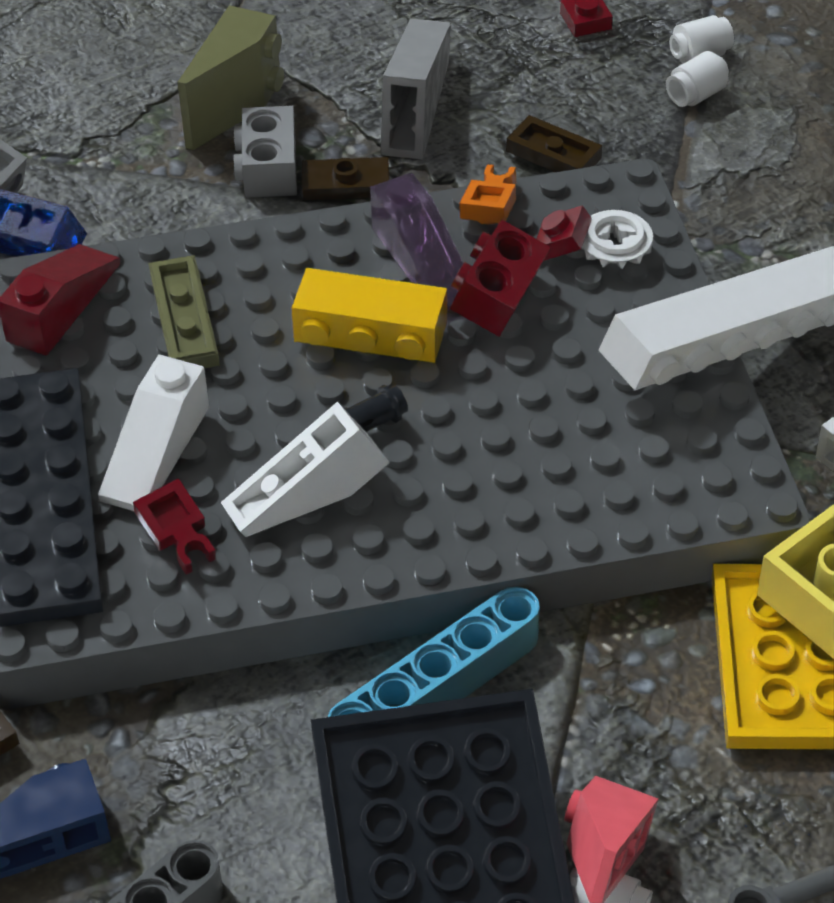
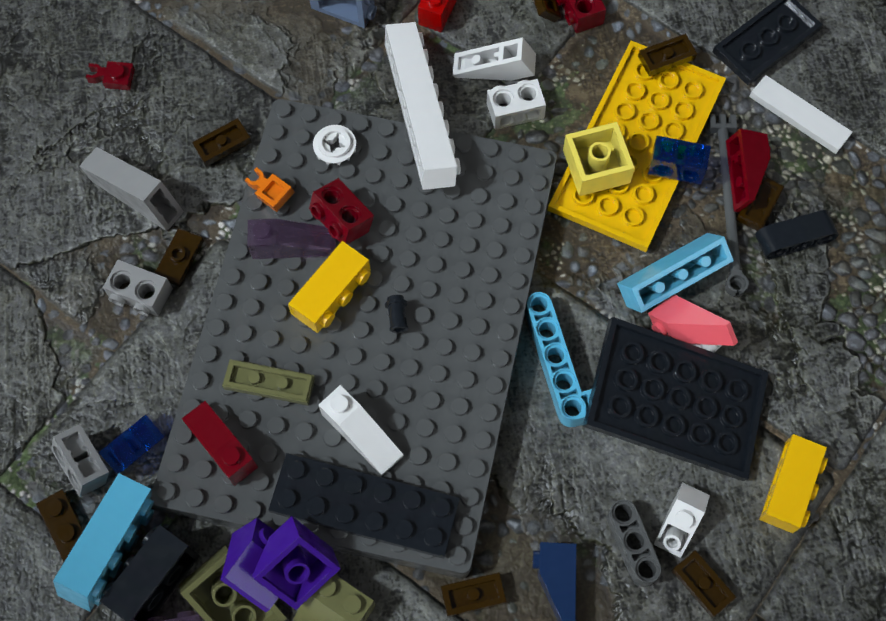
camera: 65 degrees left, 20 degrees up
(174, 519) = (423, 442): dark red plate -> none
(230, 72) = (63, 272): olive slope -> none
(311, 472) = (429, 366): white slope -> none
(564, 231) = (320, 167): dark red plate -> none
(697, 79) = (212, 48): white brick -> none
(701, 35) = (181, 30): white brick -> none
(704, 790) = (675, 272): none -> medium azure brick

